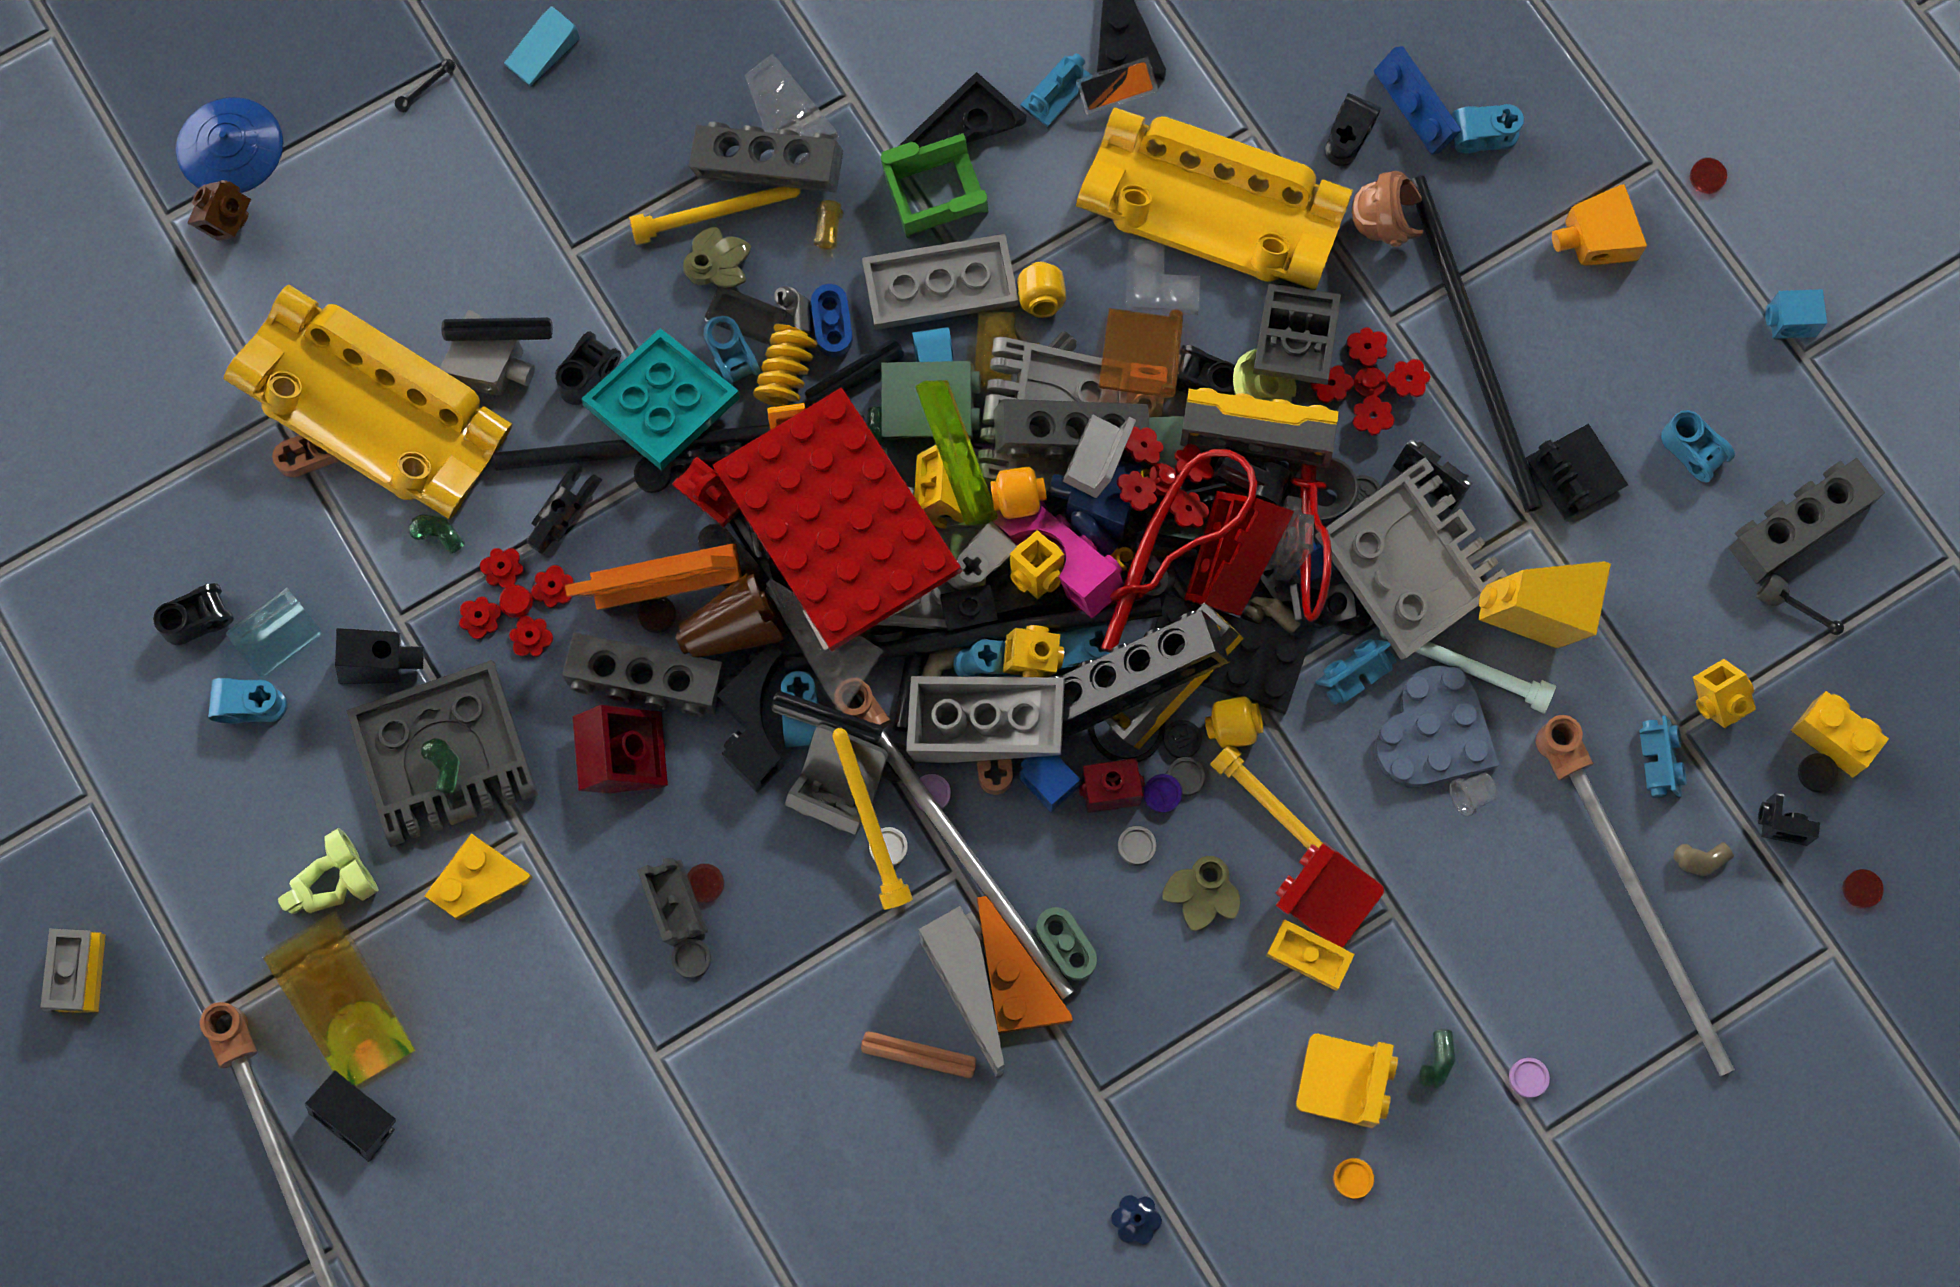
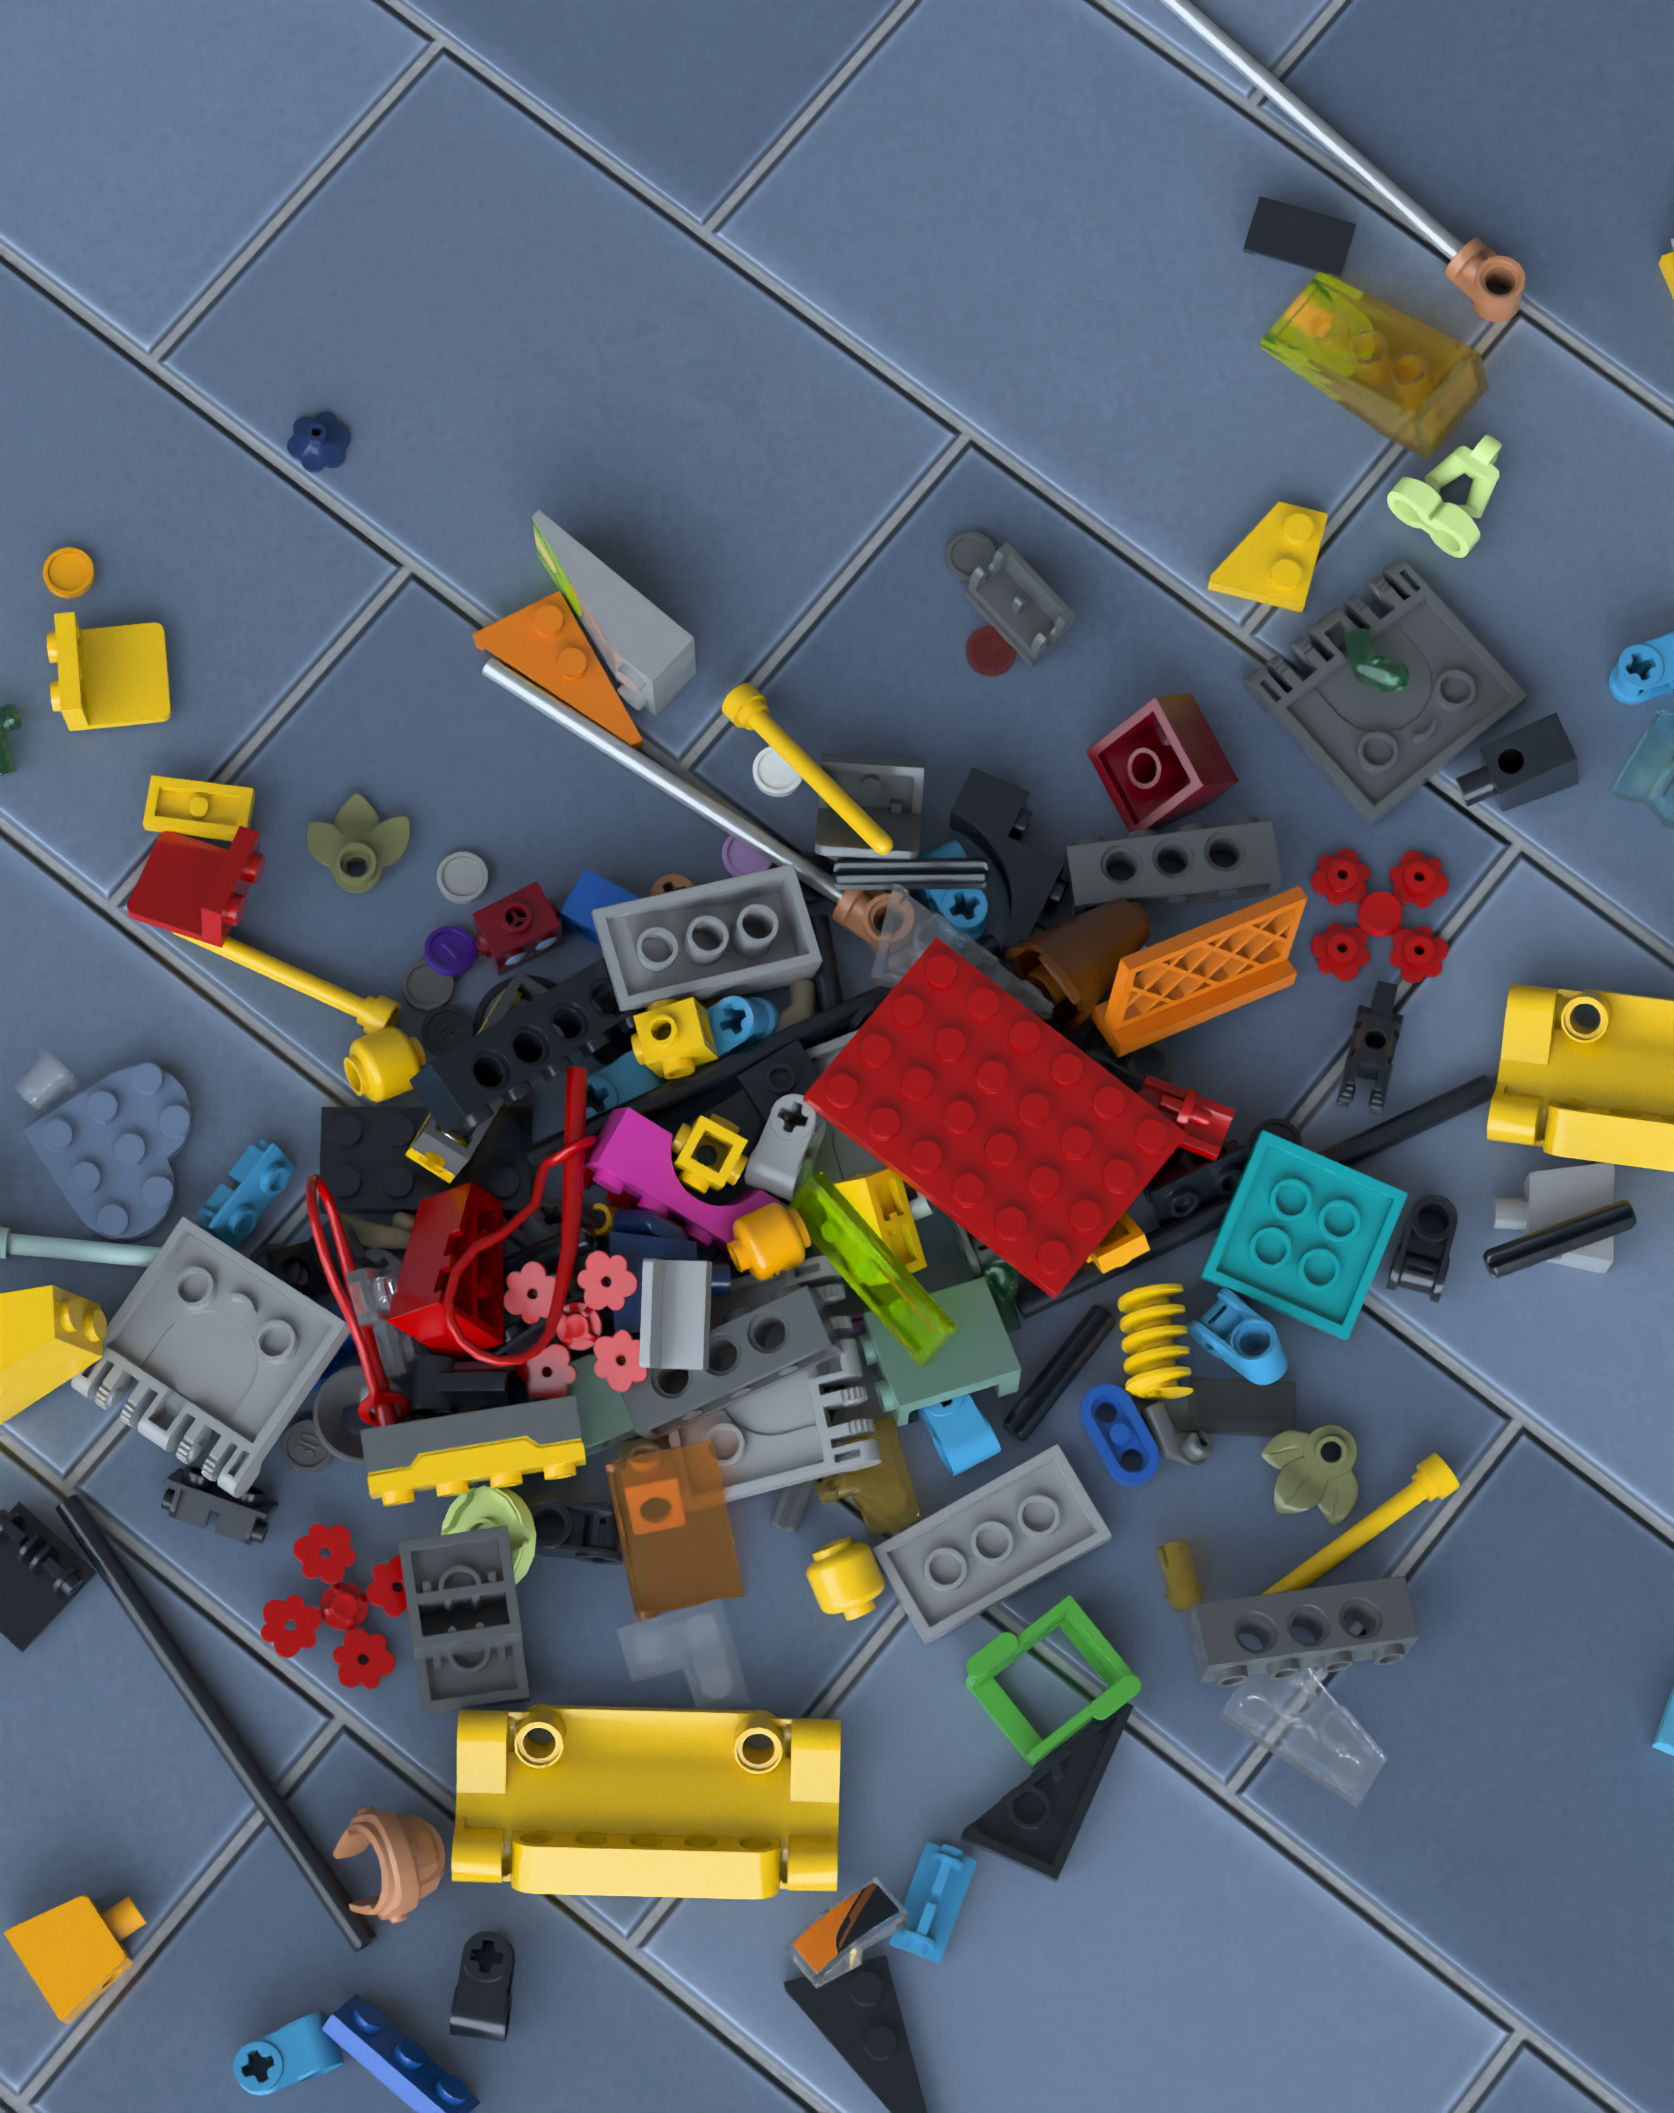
camera: 160 degrees right, 0 degrees up
(438, 527) = (1529, 970): clear green arm -> none
(918, 1054) = (650, 534): nougat axle -> none
(1067, 944) = (512, 722): sand green plate -> none

